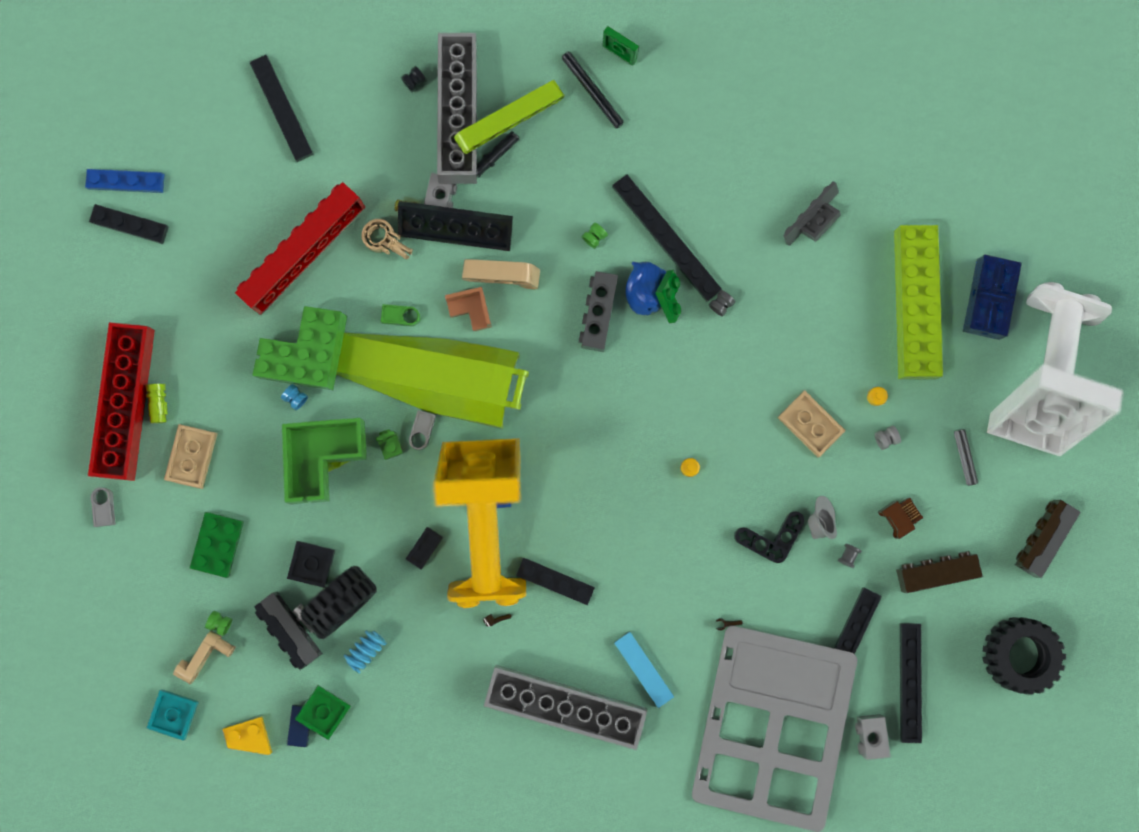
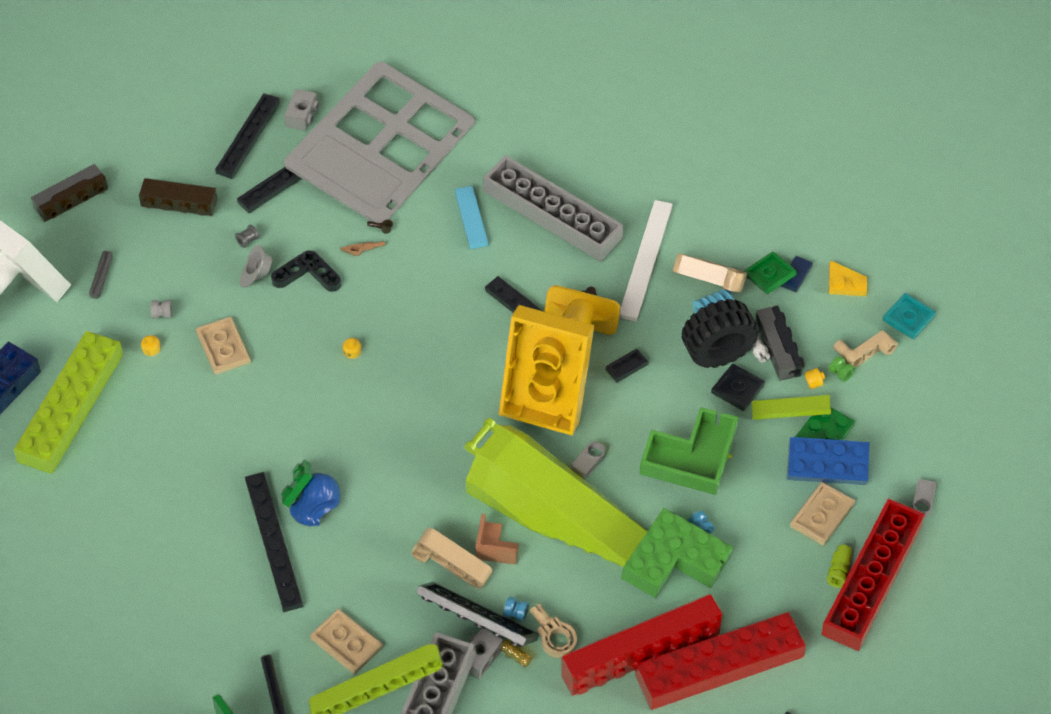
camera: 155 degrees left, 30 degrees down
(196, 505) = (828, 461): none -> blue brick
(227, 267) = (720, 660): none -> red brick
(242, 603) = (814, 378): none -> yellow piece
(252, 558) = (791, 407): none -> lime tile
(378, 688) = (710, 272): none -> beam
(389, 444) = (624, 458): bright green bracket -> none
(395, 315) = (572, 565): bright green piece -> none
(425, 249) = (516, 609): none -> dark azure wheel
(452, 685) = (645, 261): none -> white tile
(559, 167) = (346, 641): none -> tan tile
(594, 235) = (343, 563): bright green wheel -> none
(608, 283) = (384, 472): dark grey brick -> none
(721, 303) = (249, 465): dark grey wheel -> none
(734, 589) = (357, 249): none -> medium nougat hand
(816, 218) = (120, 501): dark grey bracket -> none
(901, 517) = (185, 248): reddish brown piece -> none
(1048, 661) = (138, 103): black tyre -> none

